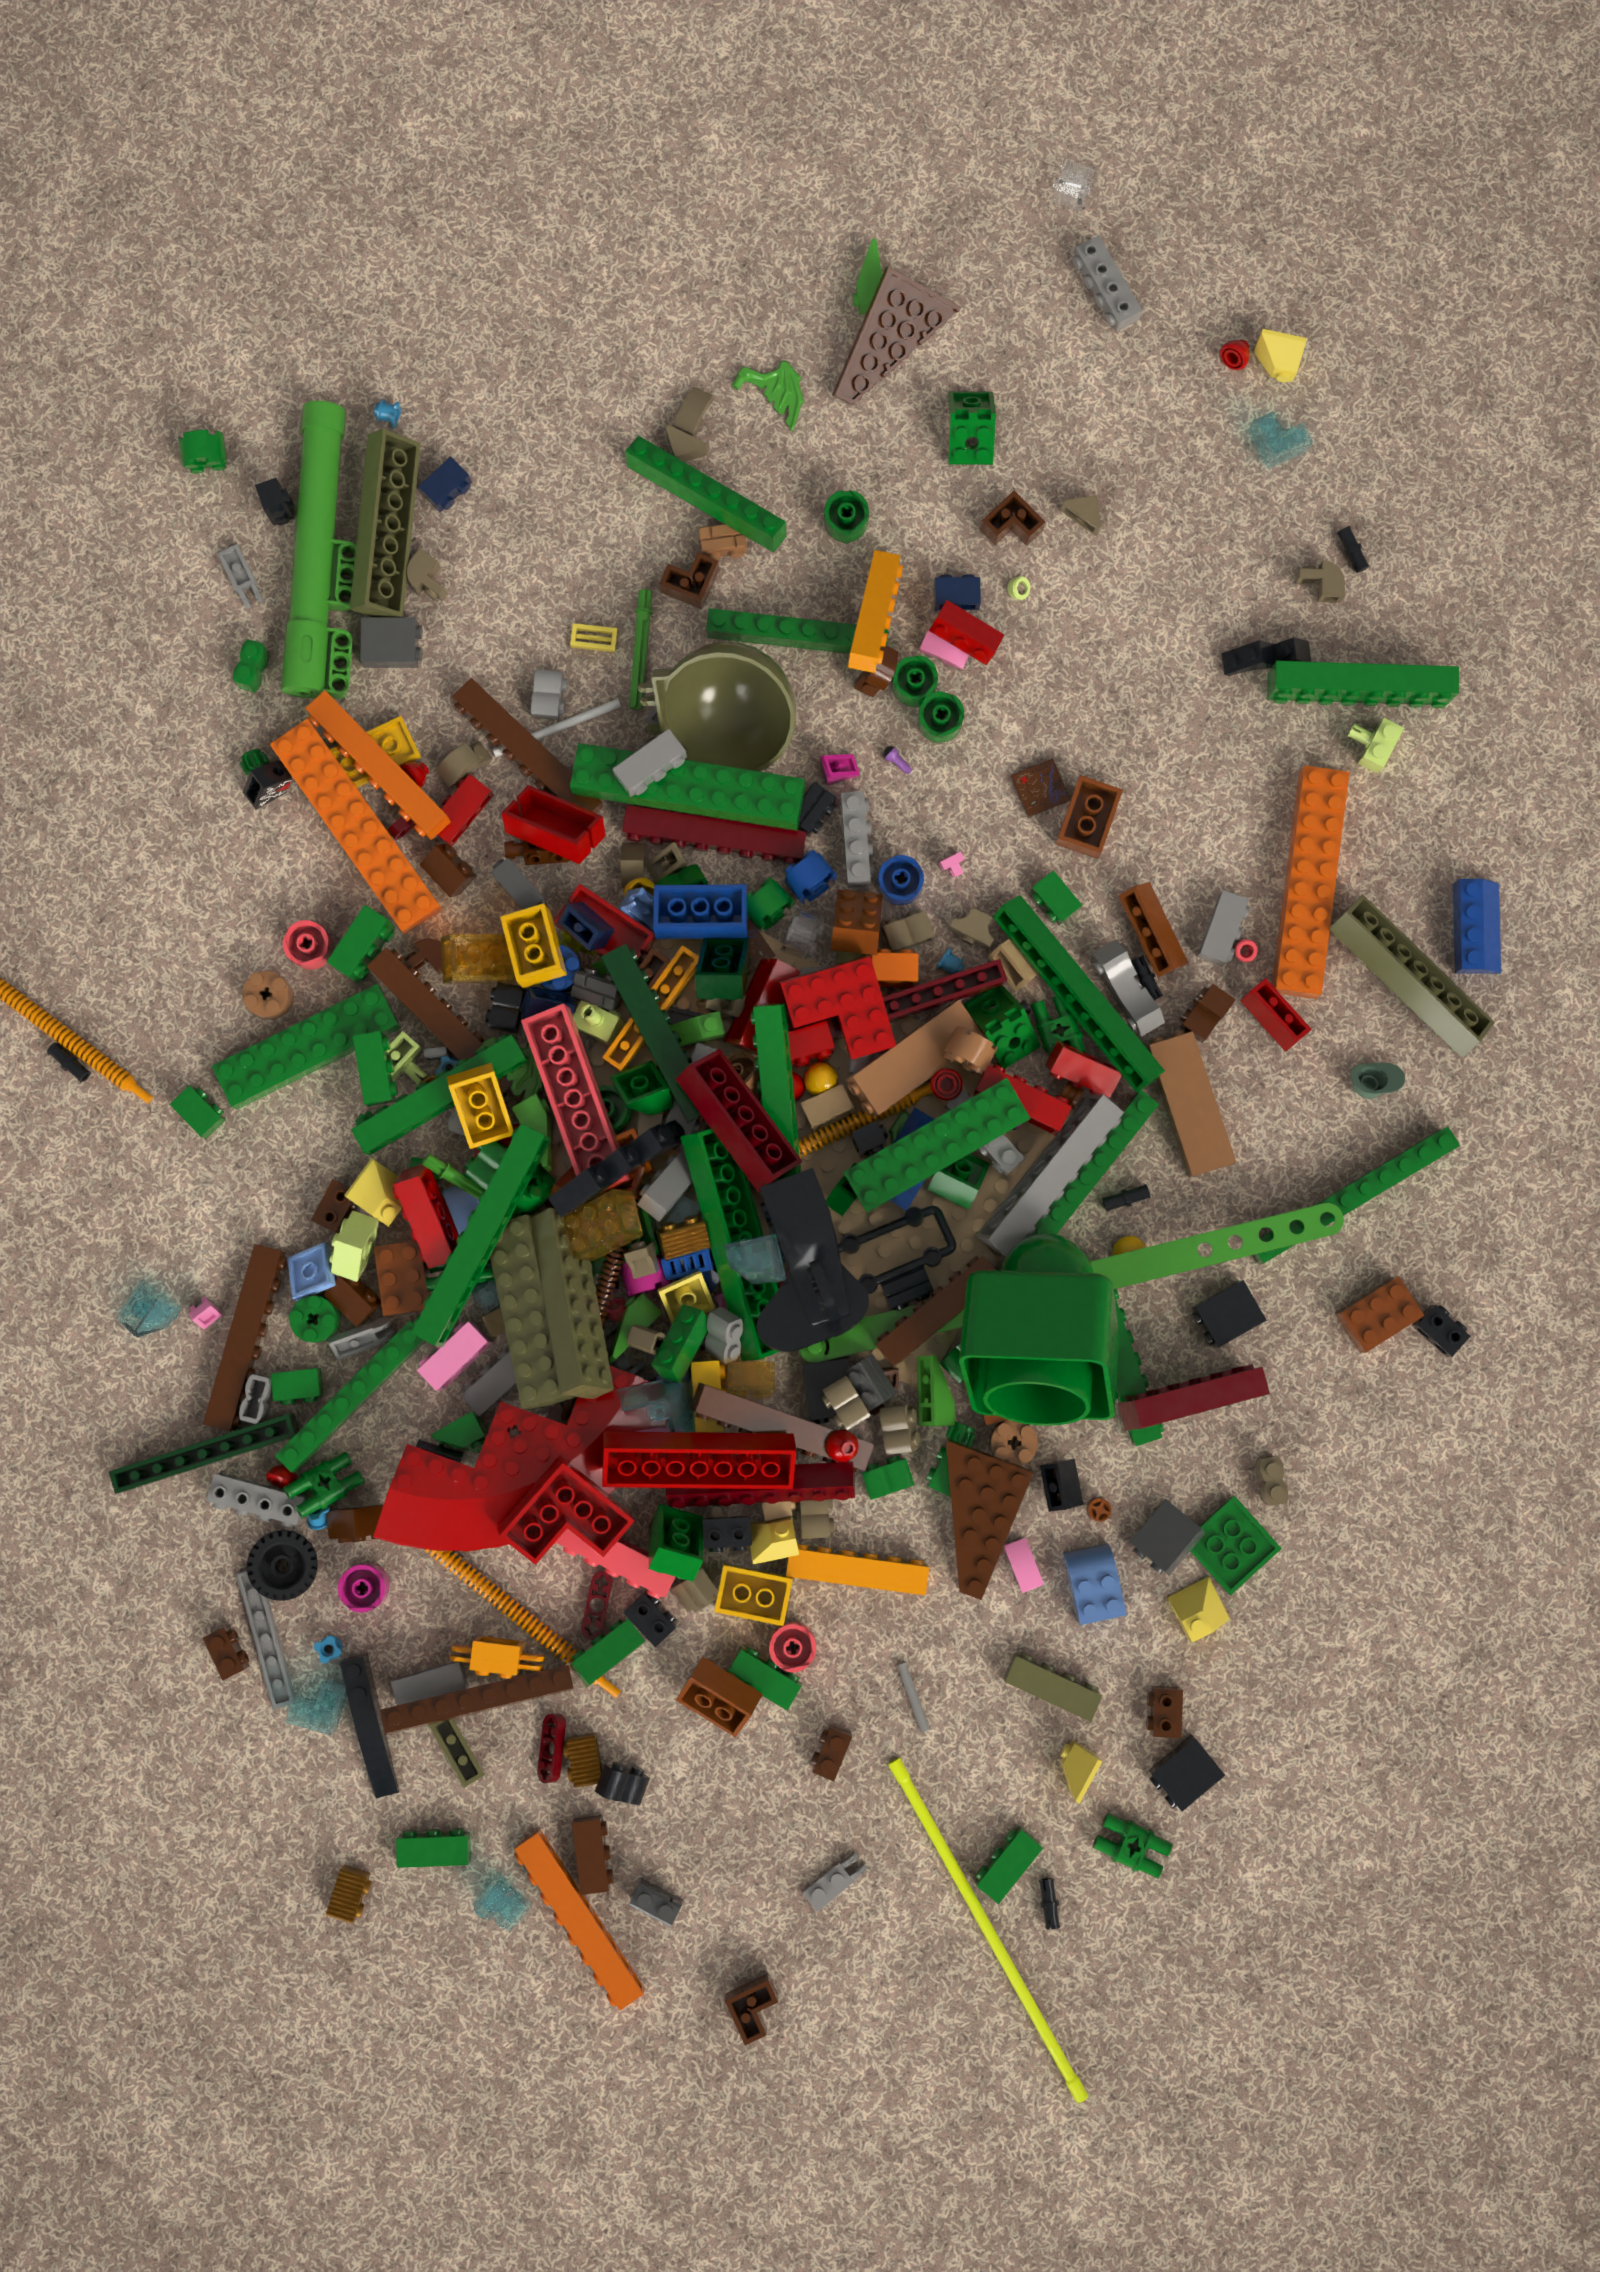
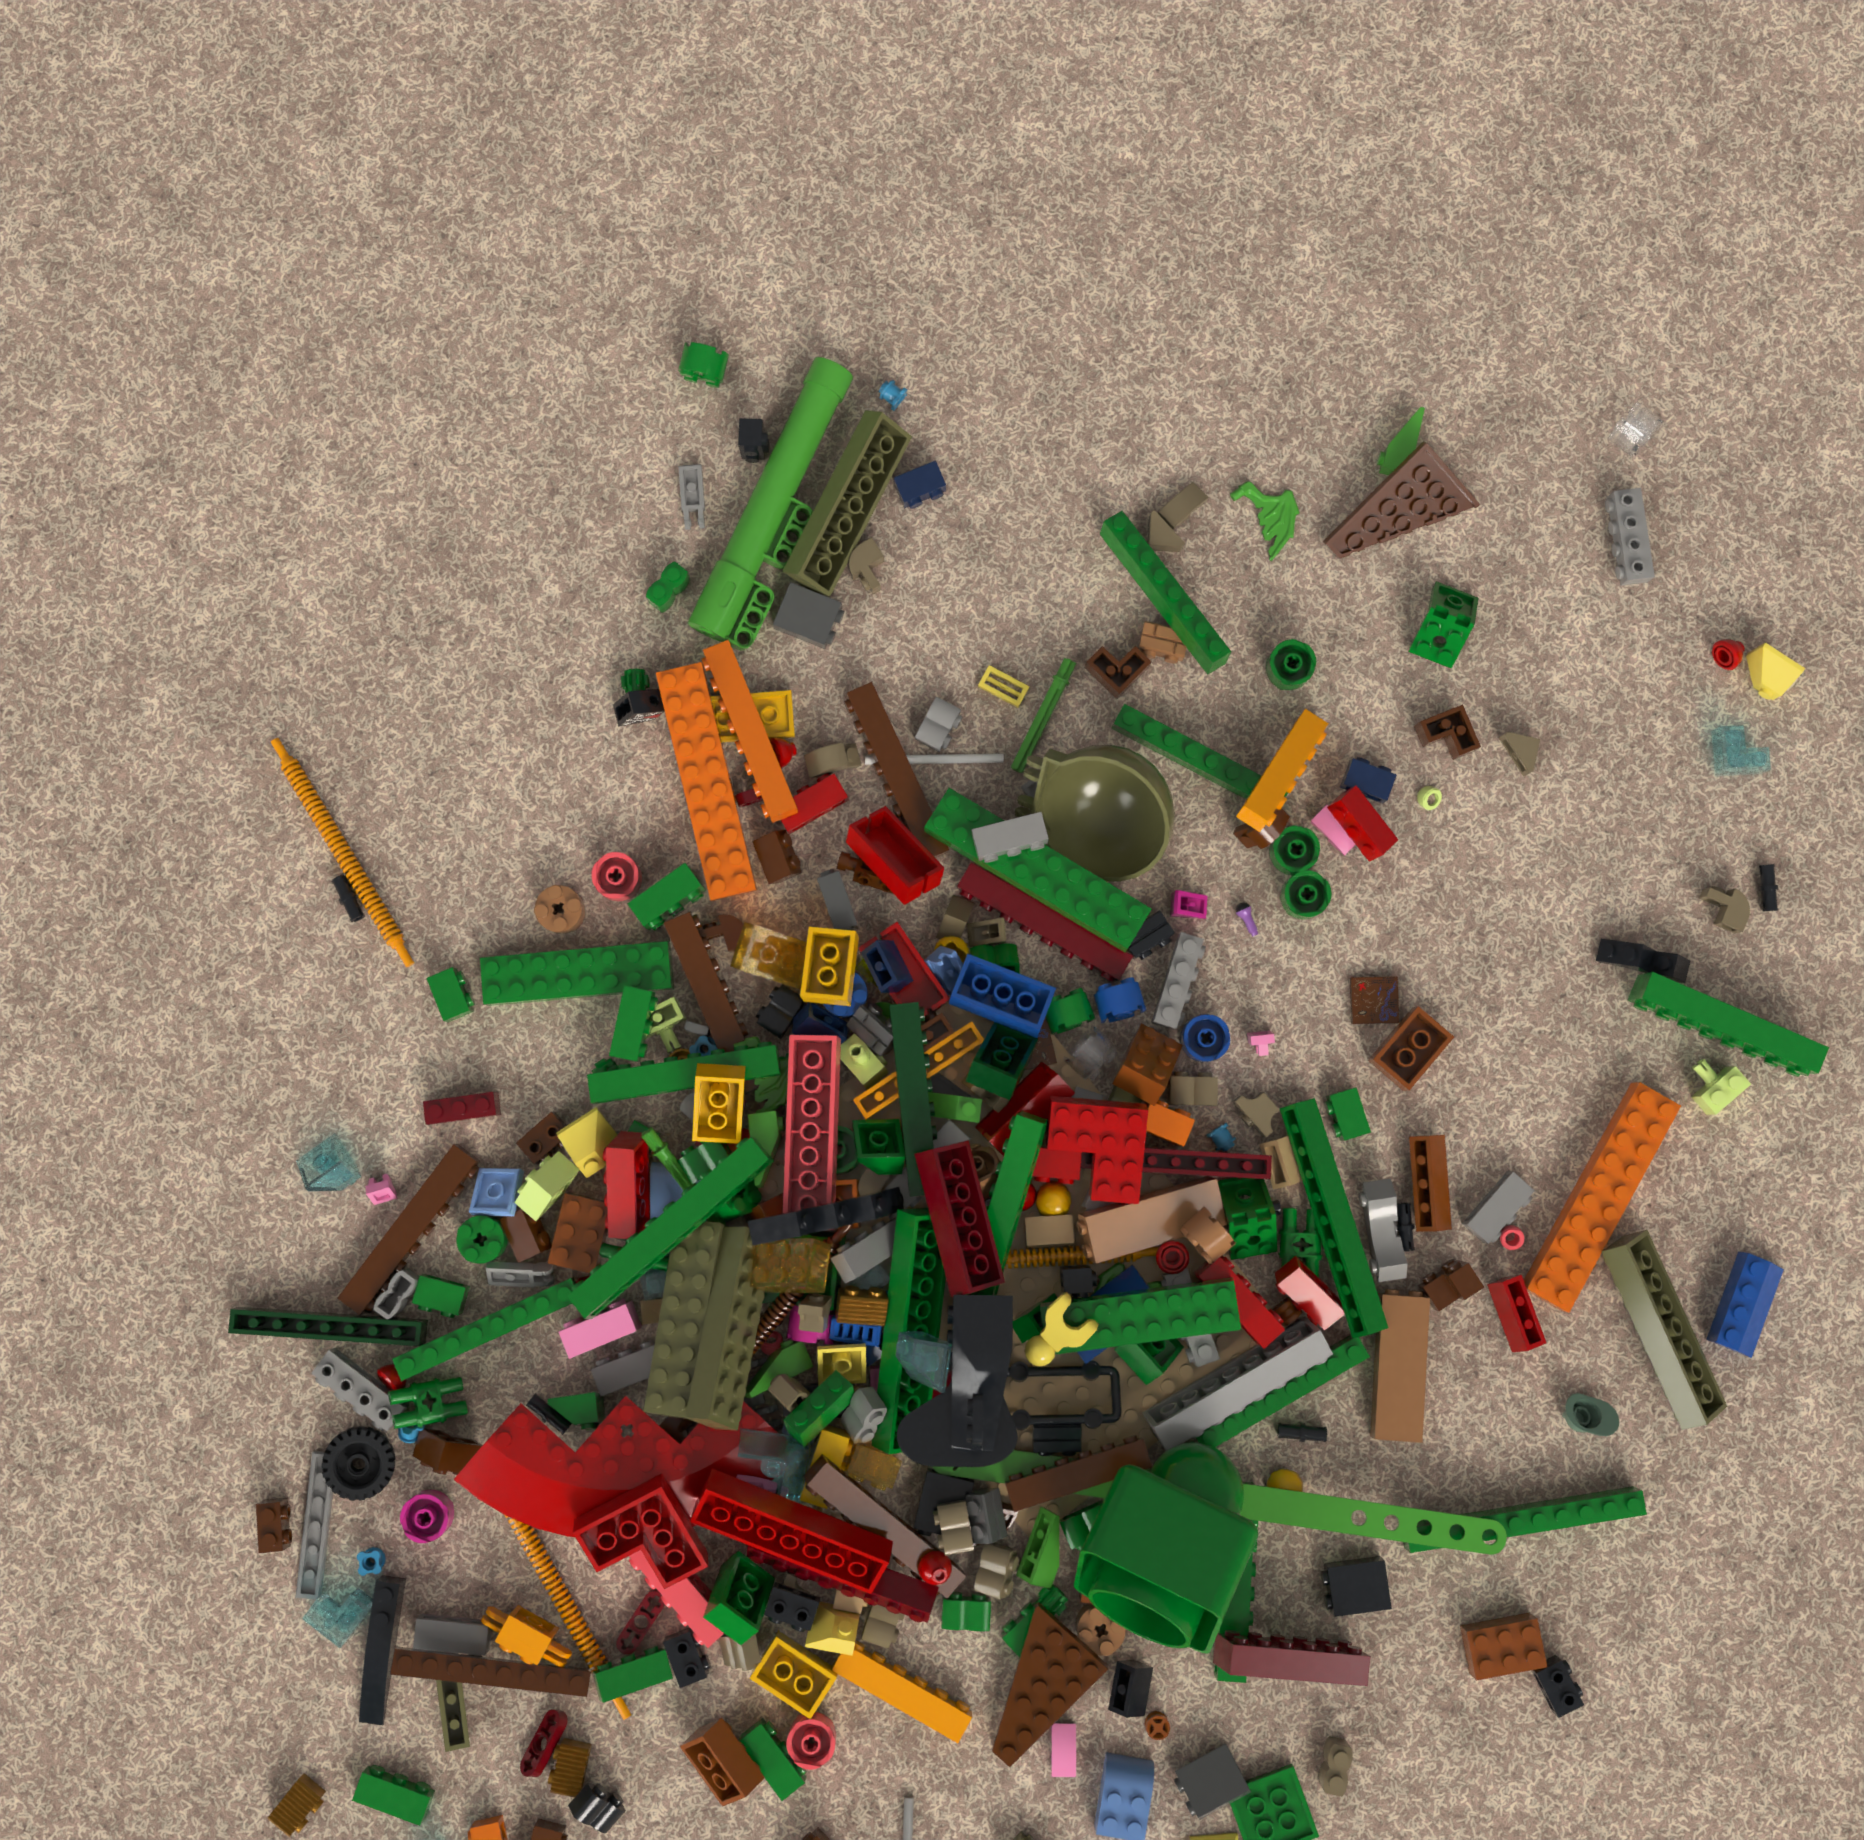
camera: 20 degrees right, 0 degrees up
(249, 1209) = (461, 1108): none -> dark red brick
(858, 1206) = (1057, 1334): none -> light yellow piece

